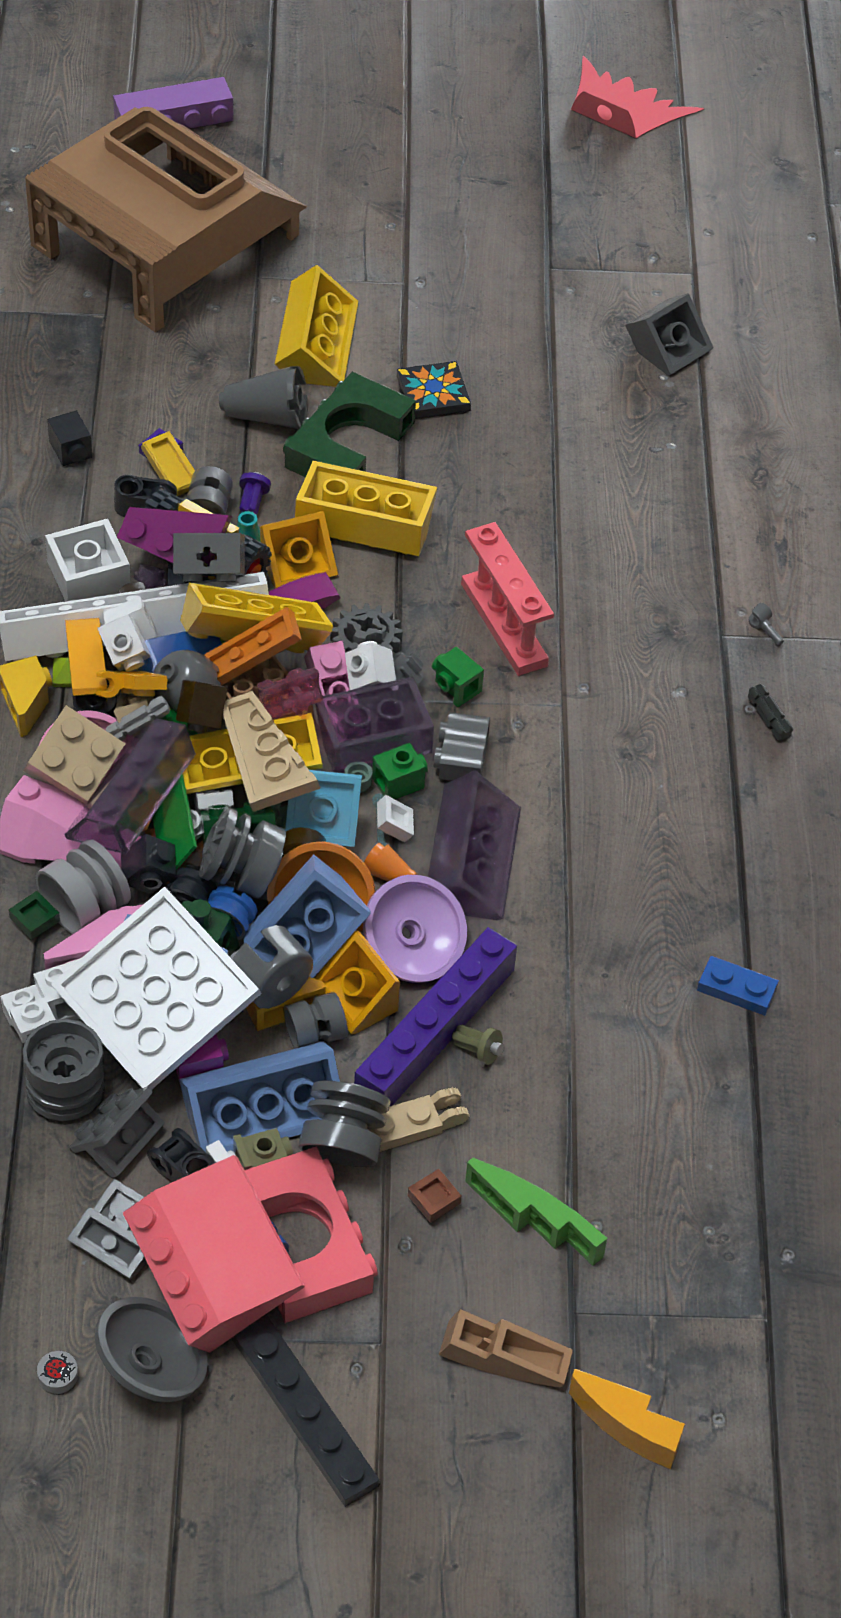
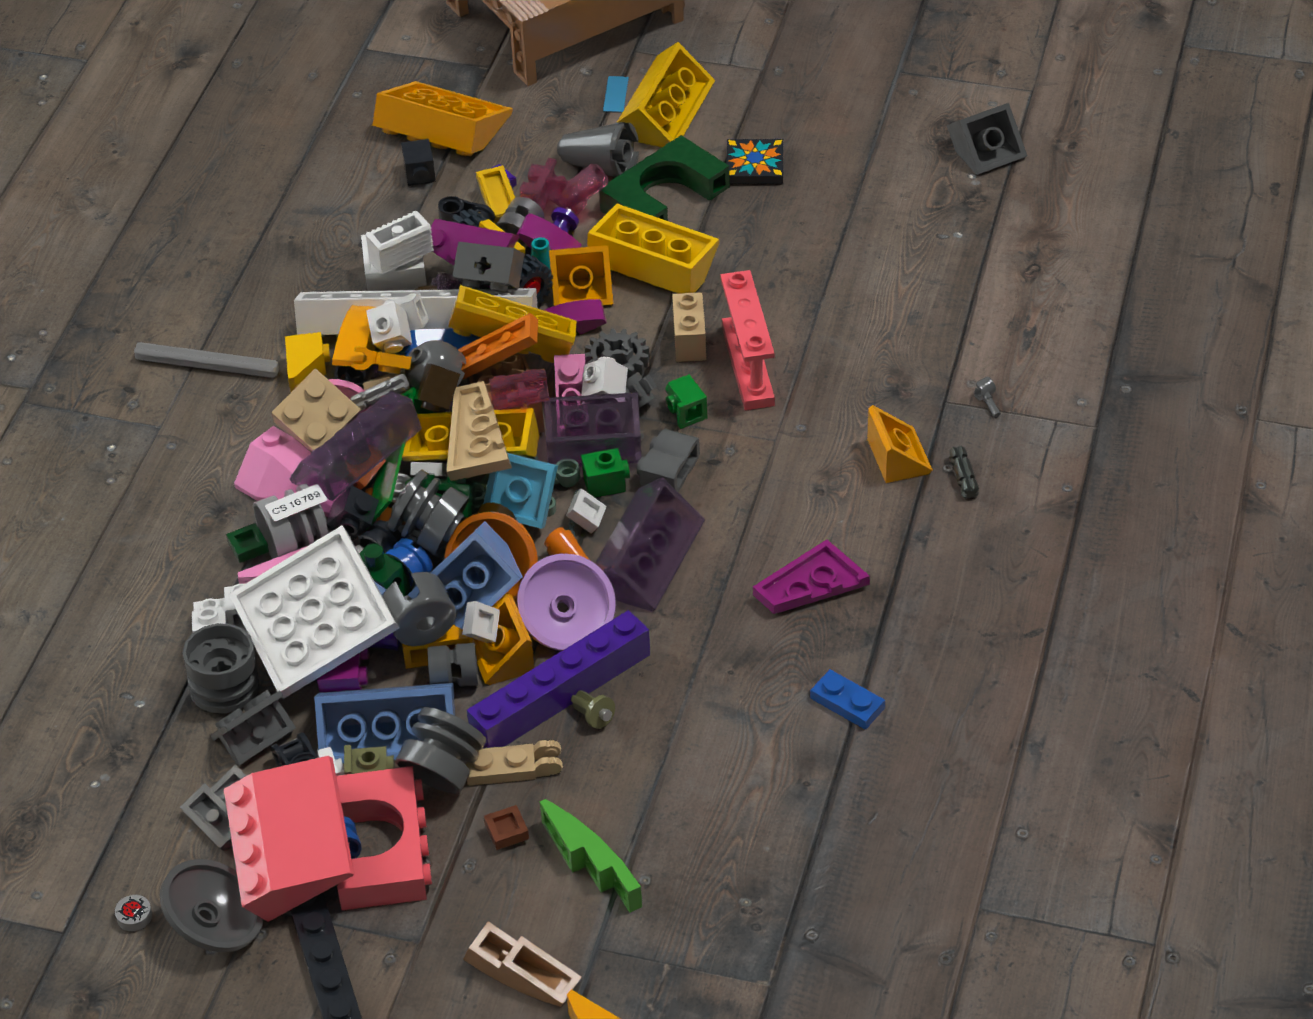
camera: 20 degrees right, 5 degrees down
(74, 381) = (440, 116): none -> light orange slope
(92, 865) = (296, 502): none -> white sticker
(100, 540) = (399, 242): none -> white brick
(232, 448) = (543, 181): none -> clear pink hips
(235, 501) = (537, 227): none -> magenta slope
(255, 329) = (615, 94): none -> dark azure sticker
(260, 452) = (576, 192): none -> clear pink piece
(335, 967) = (481, 622): none -> white plate
(433, 591) = (689, 327): none -> tan brick
(655, 857) = (810, 578): none -> magenta wing
(692, 696) = (895, 447): none -> light orange slope

